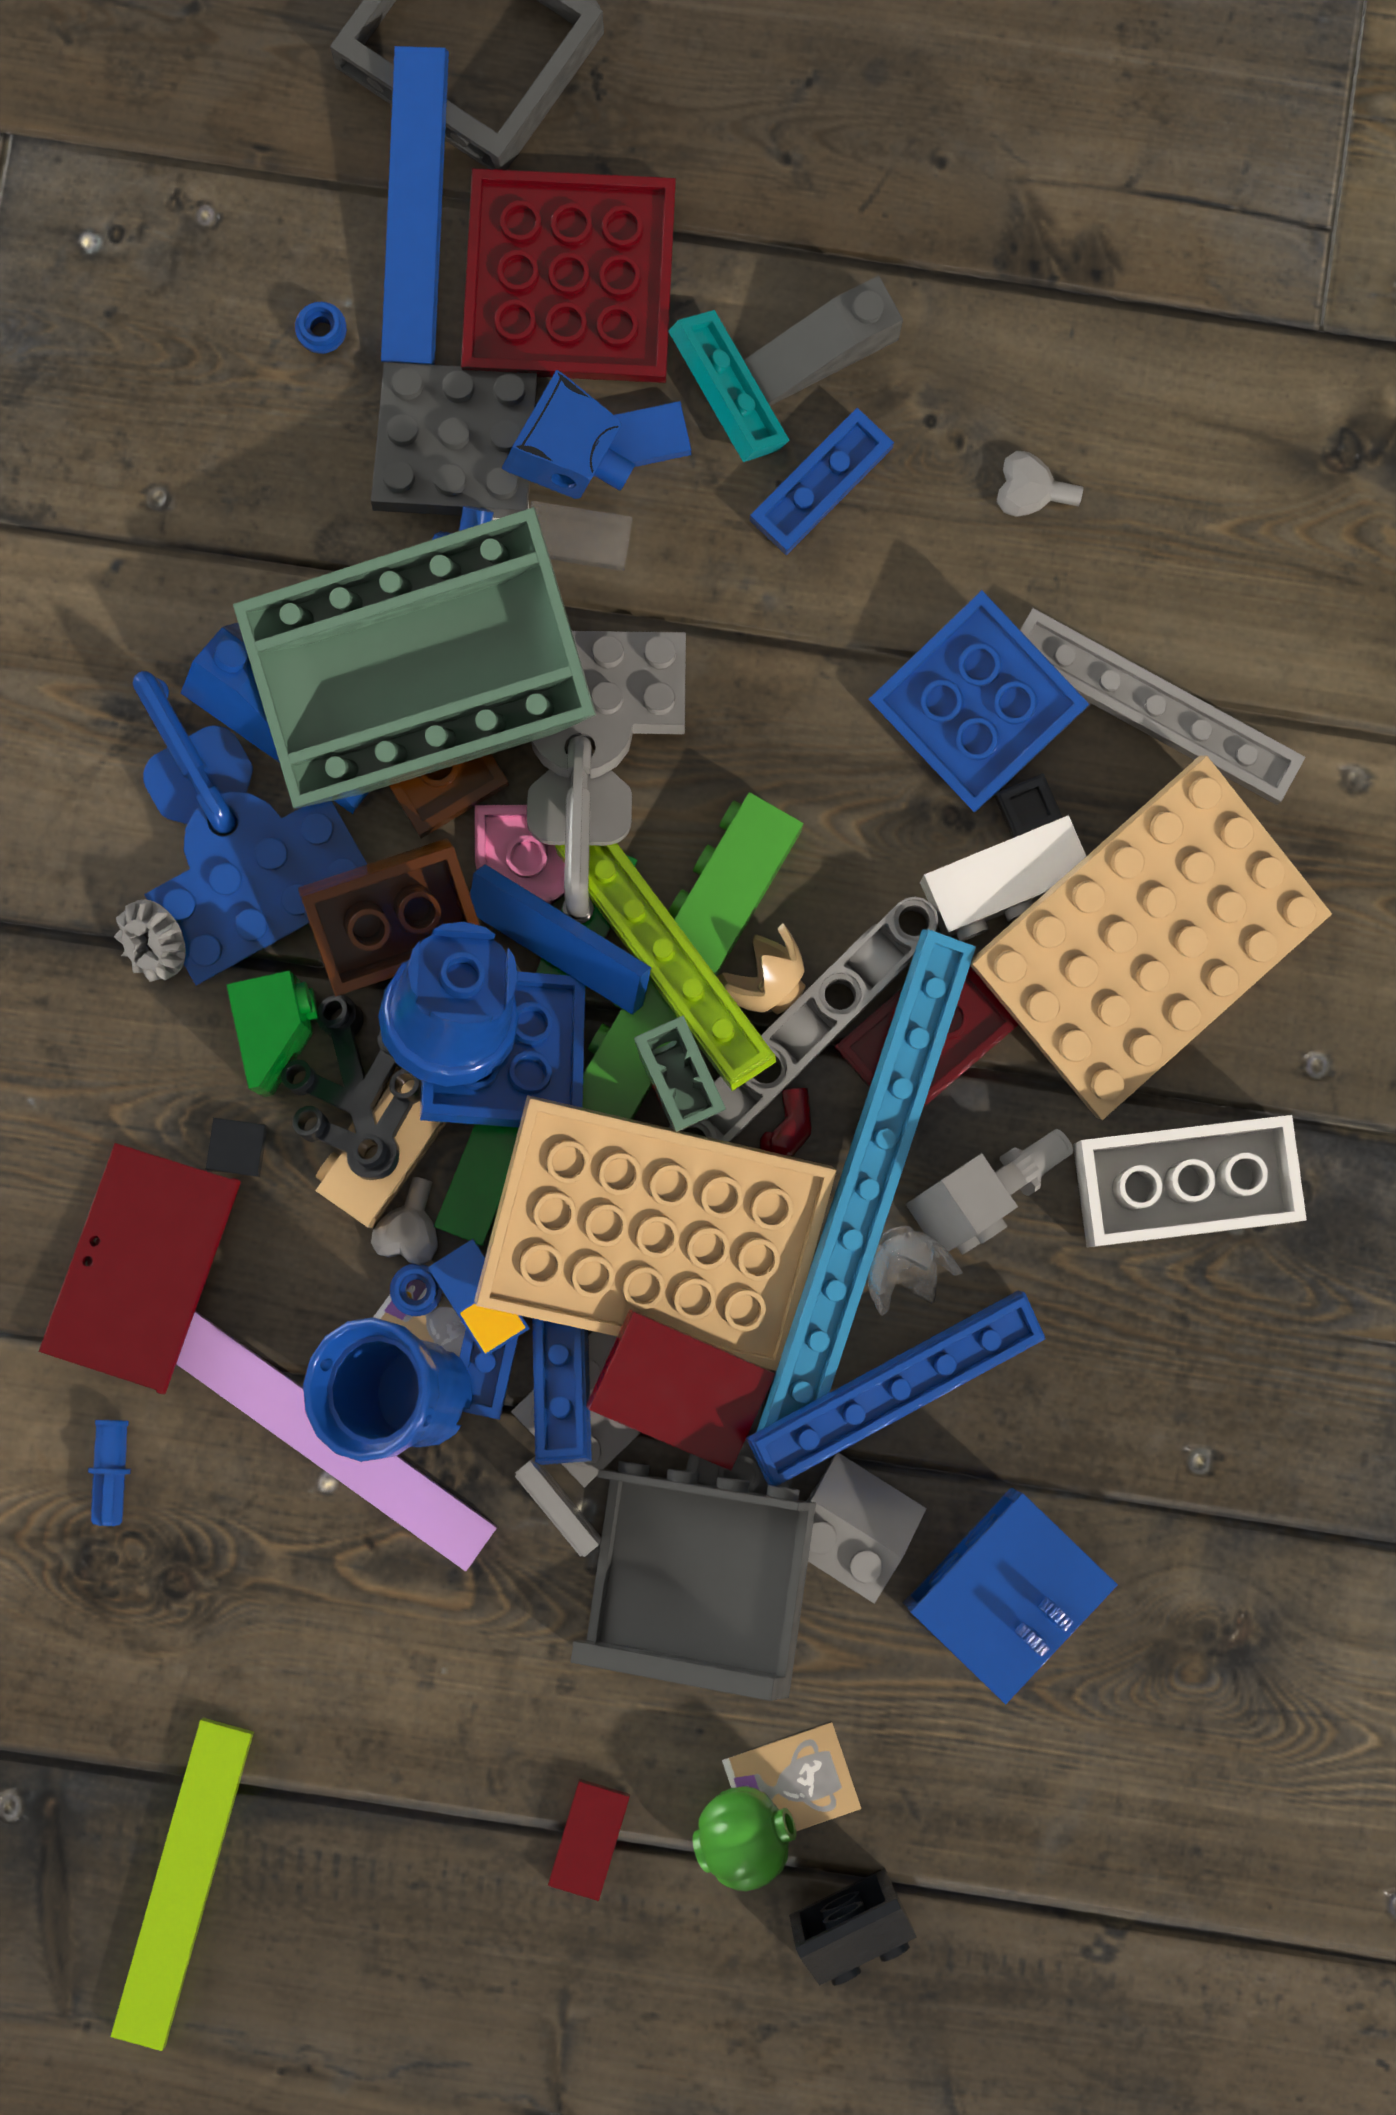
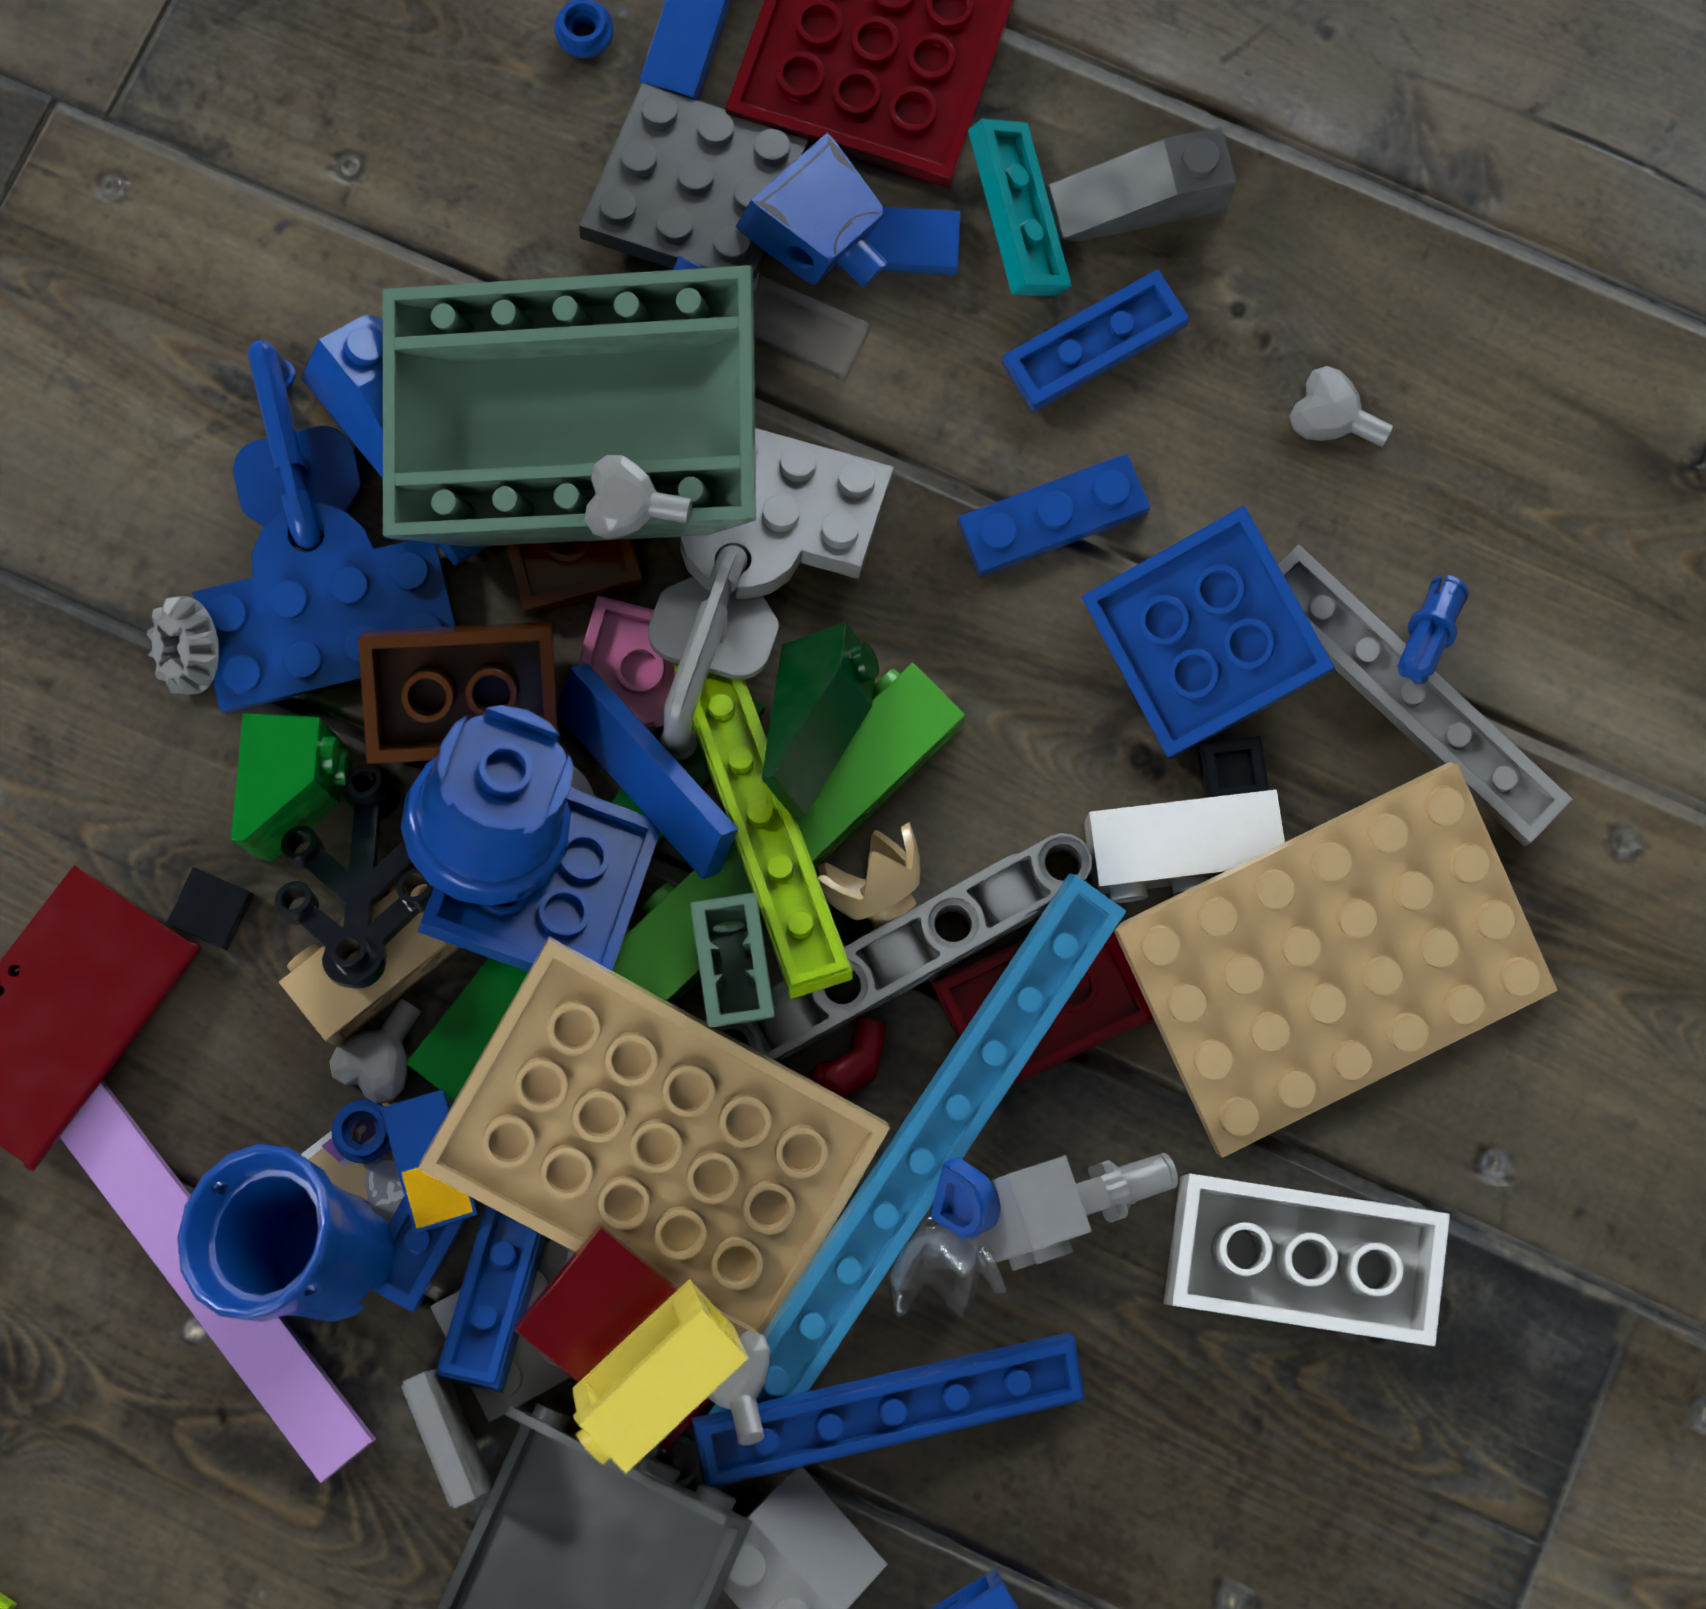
camera: 20 degrees right, 5 degrees down
(489, 726) = (628, 499): none -> light grey rock
(684, 853) = (816, 710): none -> dark green slope
(711, 1413) = (656, 1378): none -> light yellow window
(772, 1399) = (743, 1388): none -> light grey rock
(827, 636) = (1053, 515): none -> blue plate
(911, 1210) = (965, 1200): none -> blue tile
(1158, 648) = (1432, 628): none -> blue axle

